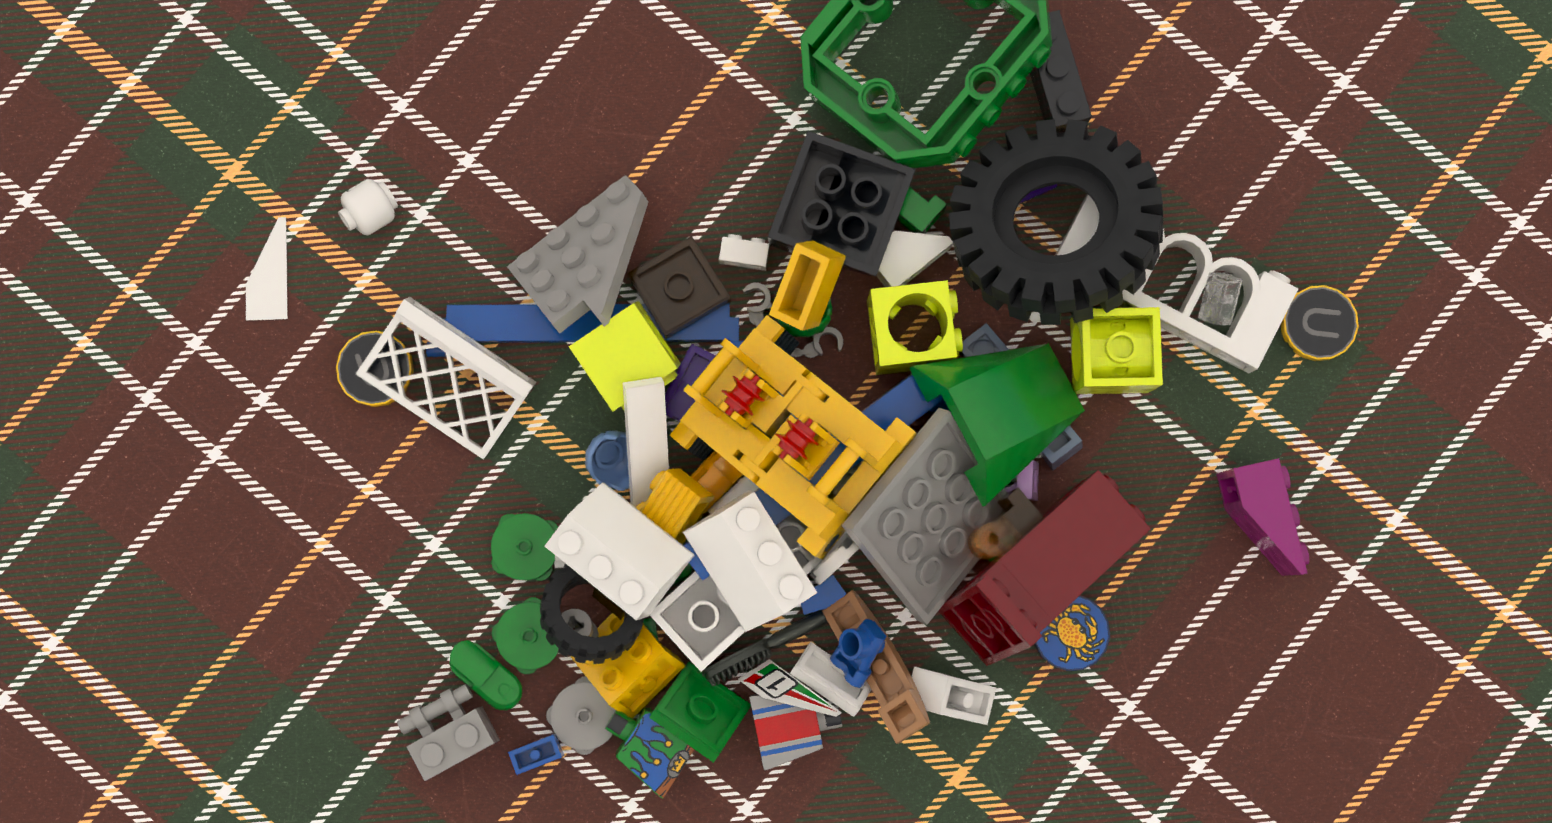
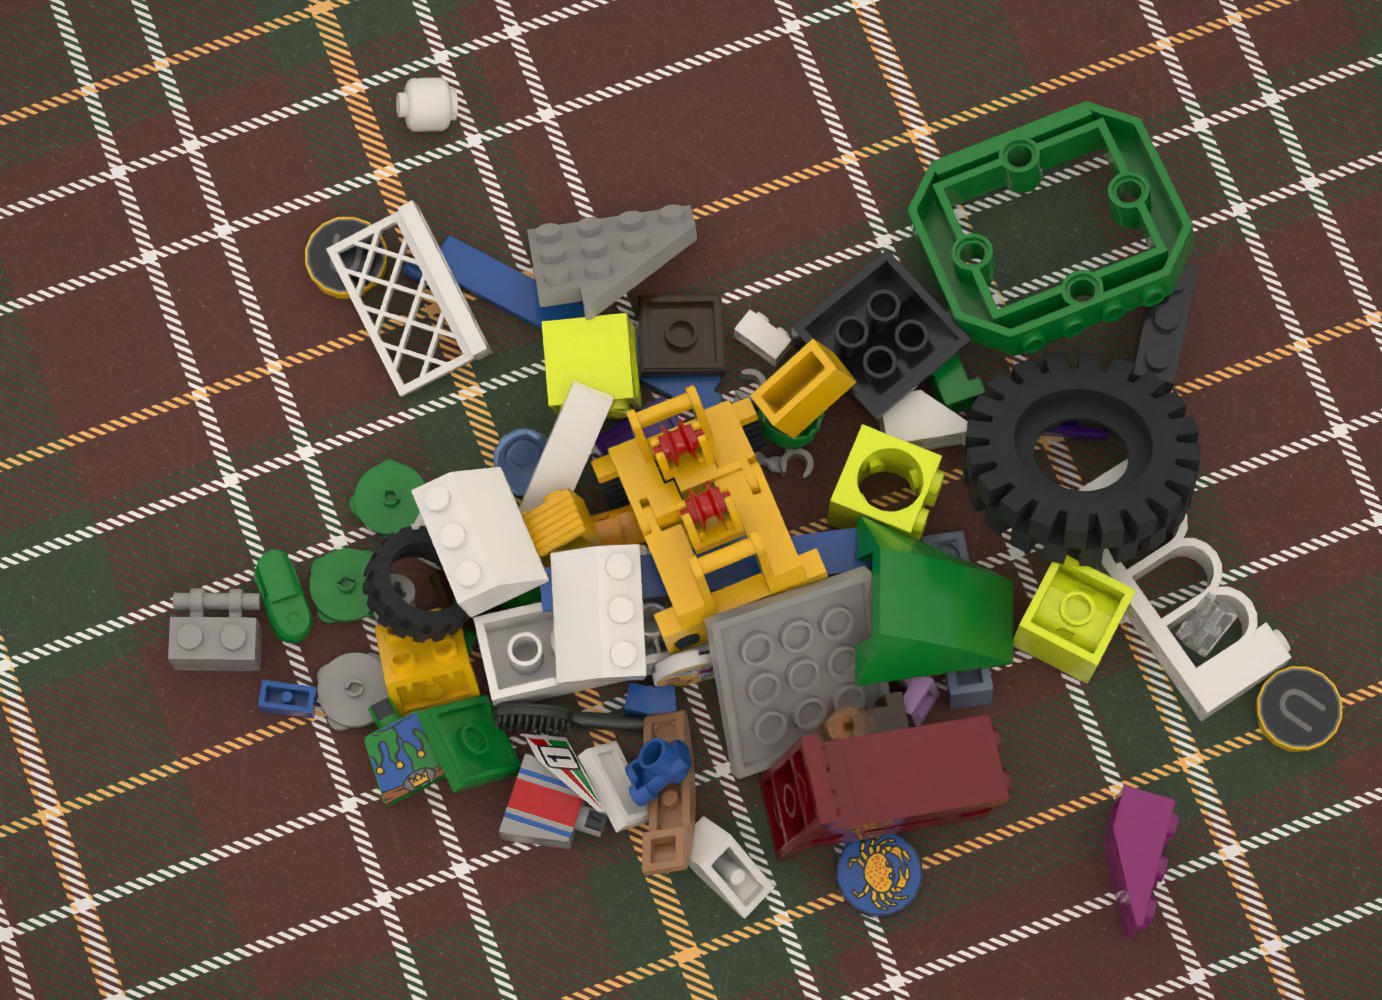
camera: 30 degrees right, 10 degrees down
(268, 281) = (292, 126): white sticker -> none

